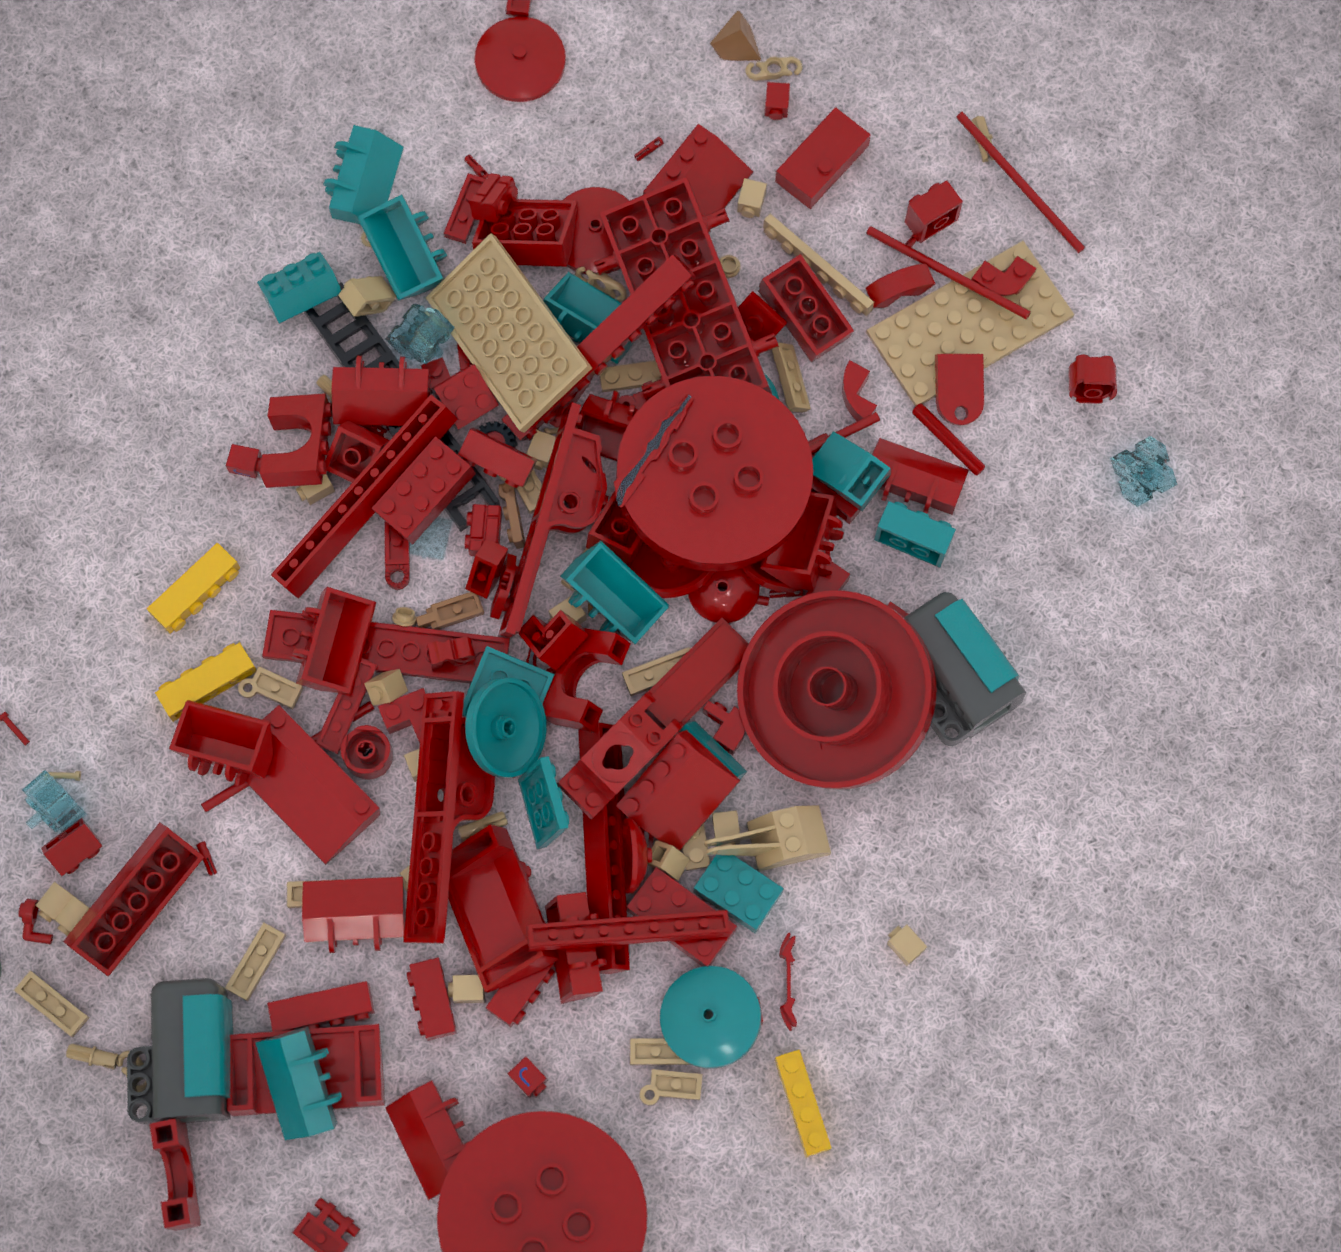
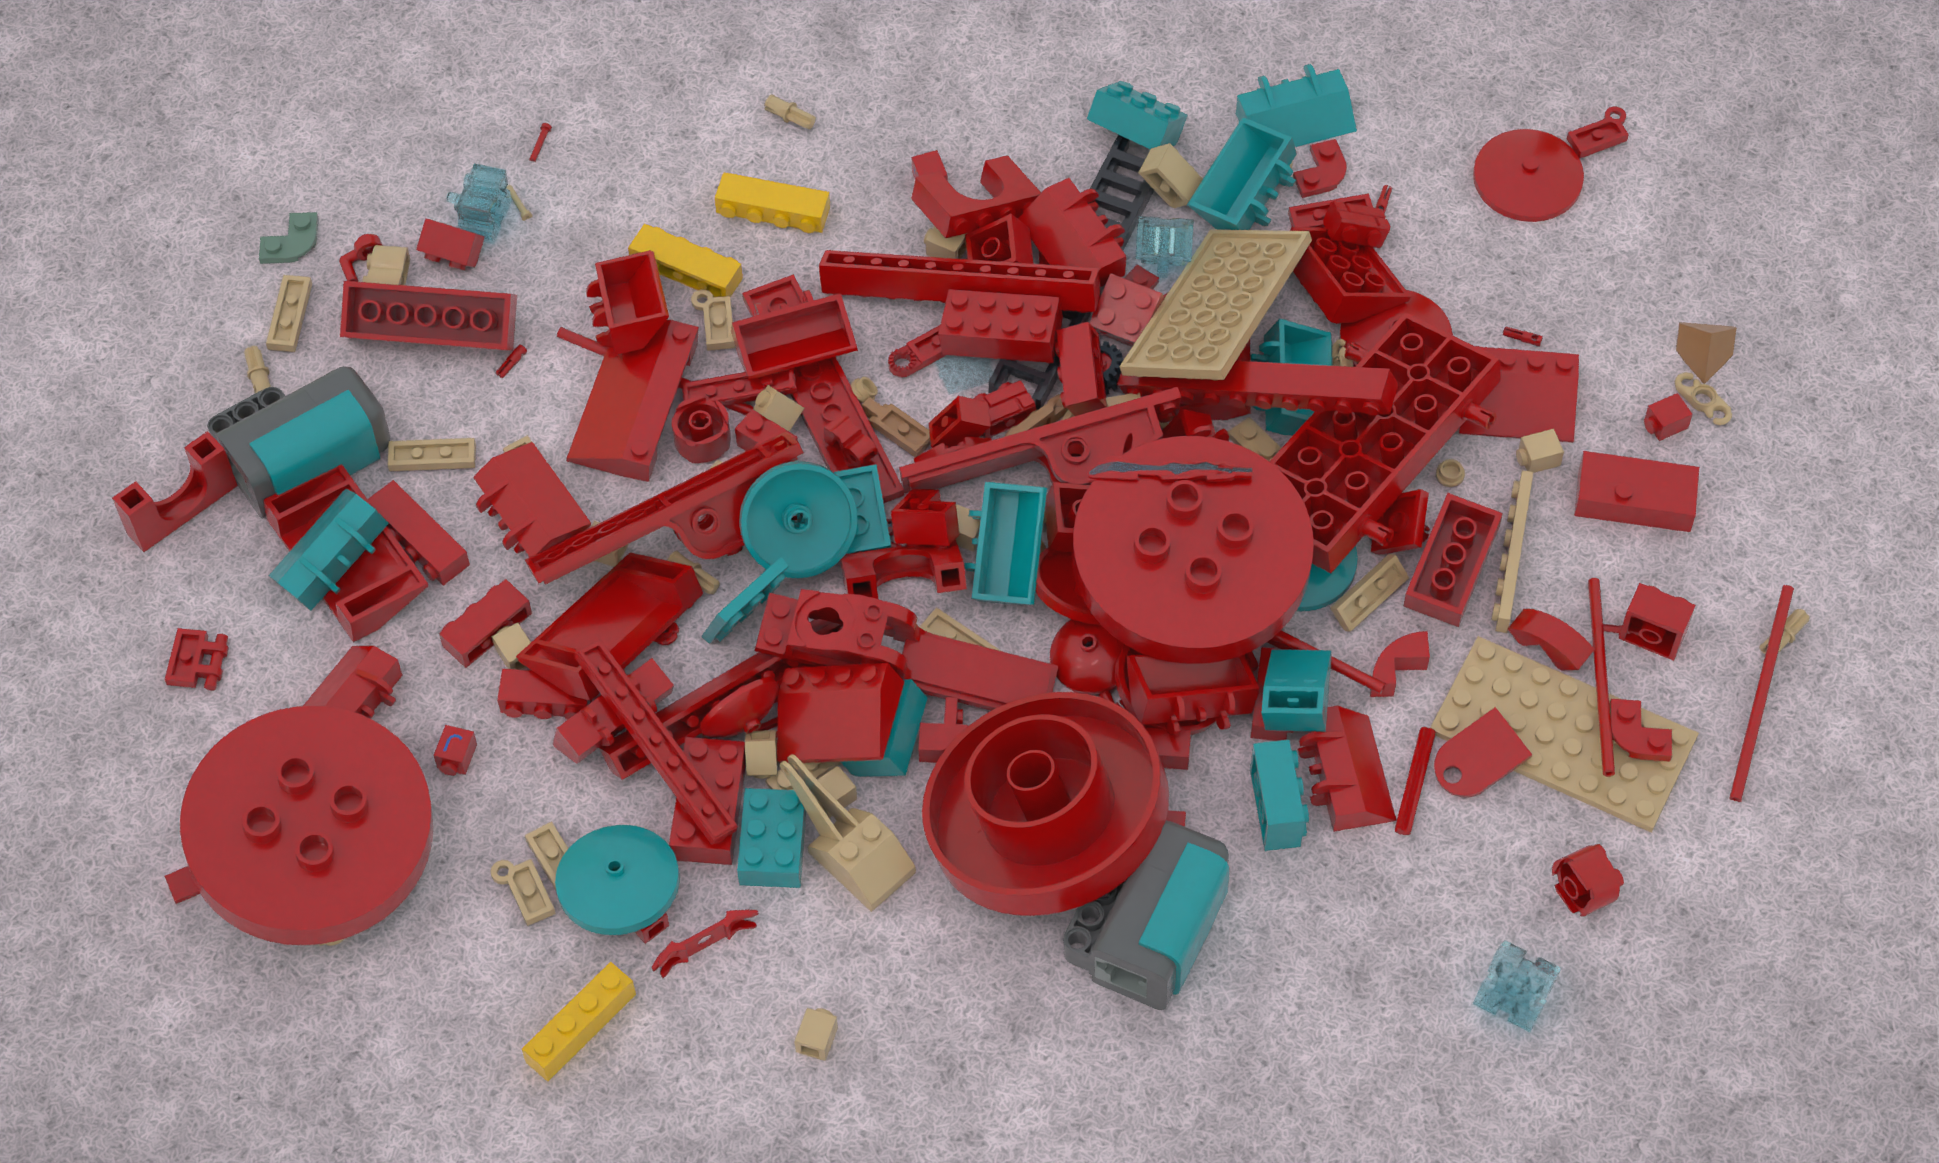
camera: 60 degrees right, 15 degrees down
(116, 528) = (789, 112): none -> tan axle
(427, 186) = (1328, 173): none -> red plate

